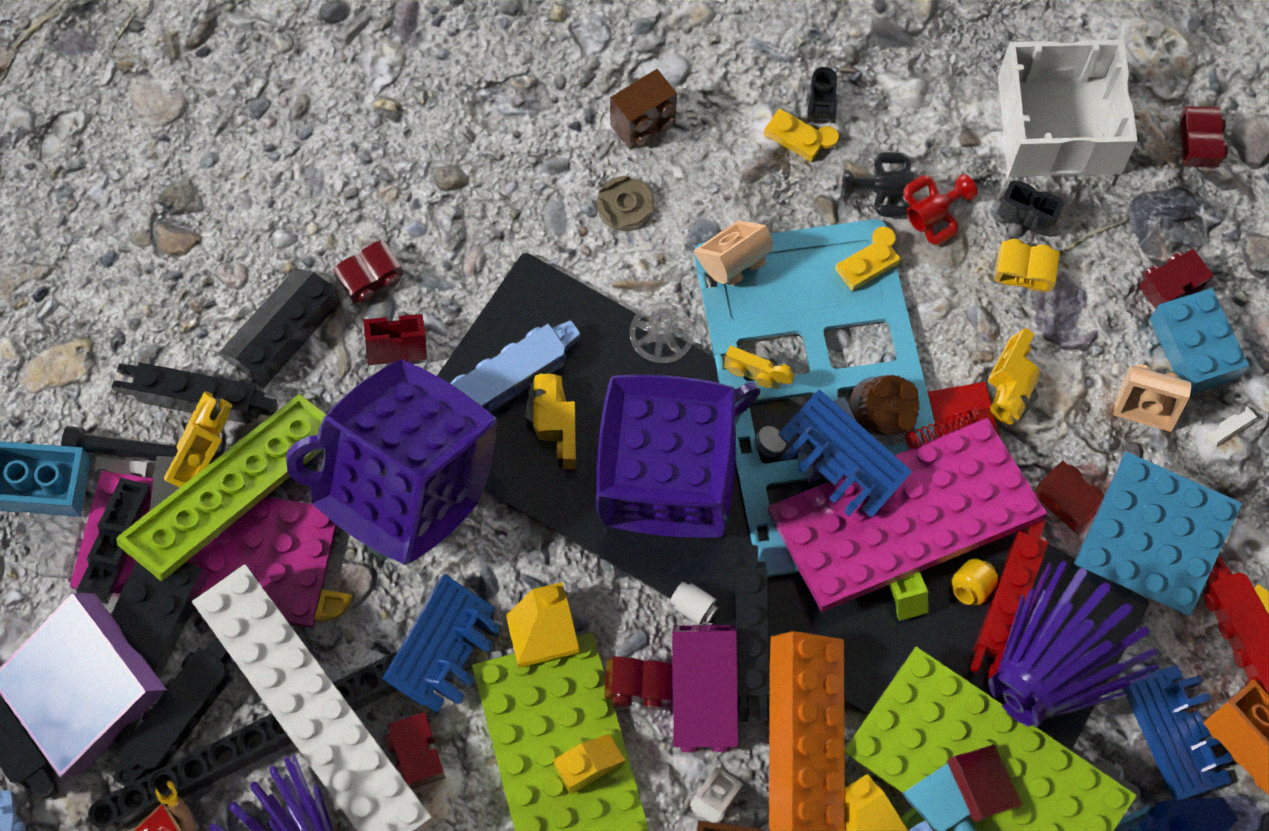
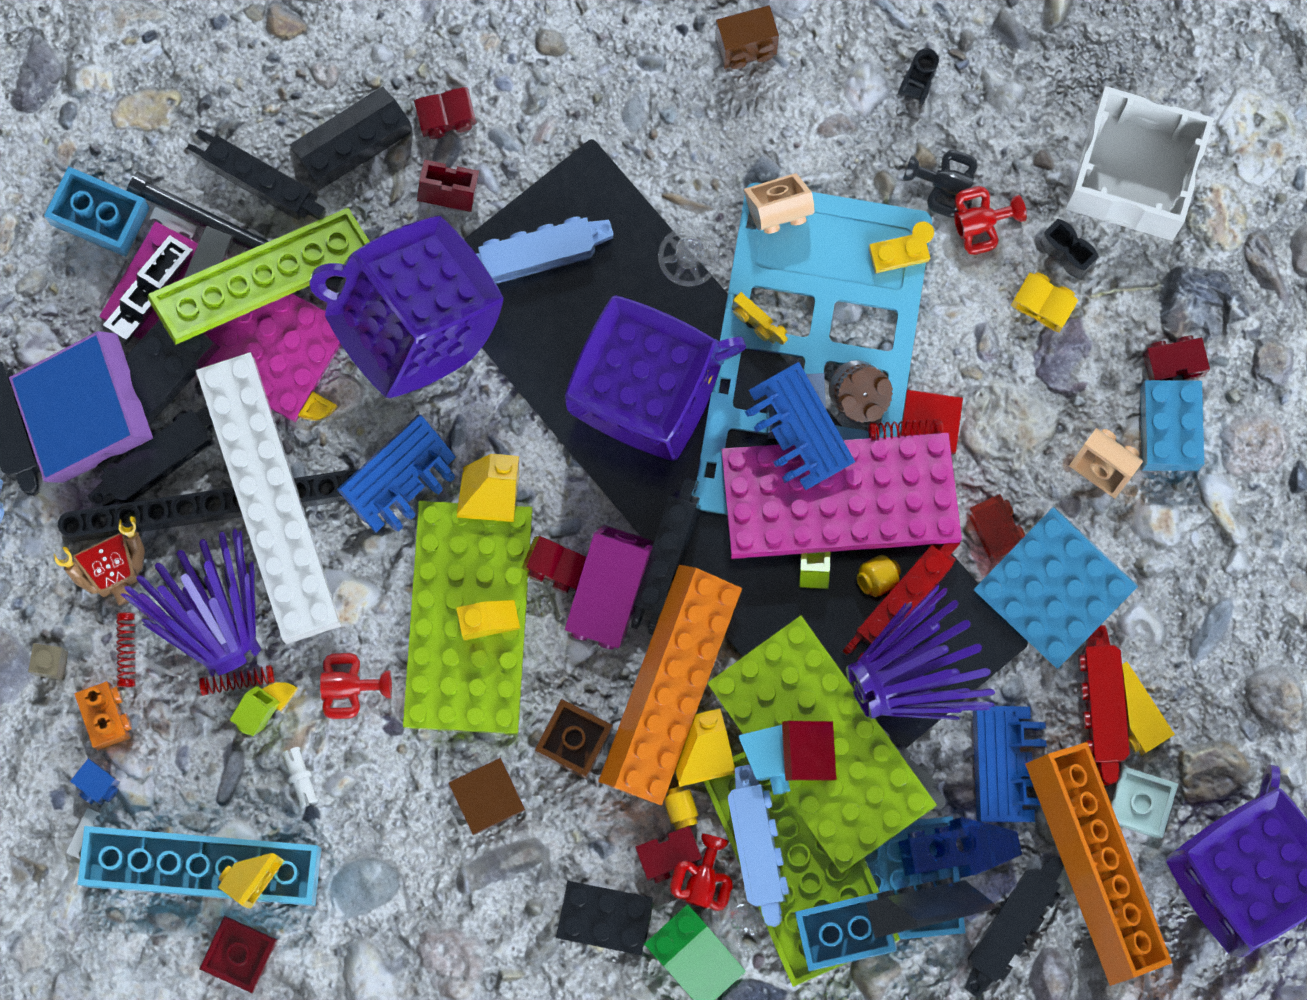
camera: 20 degrees right, 10 degrees up
(199, 439) = (246, 225): yellow plate -> none
(411, 742) = (345, 554): dark red brick -> none
(553, 416) = (562, 304): yellow plate -> none
(625, 203) = (701, 120): dark tan tile -> none
(694, 603) = (627, 512): white brick -> none
(715, 795) = (587, 682): white slope -> none
(769, 442) = (741, 389): dark grey tile -> none
(800, 136) = (885, 106): yellow hinge -> none
(1014, 379) = (989, 405): yellow plate -> none
(1202, 136) = (1261, 231): dark red brick -> none
(1232, 426) = (1172, 512): white piece -> none

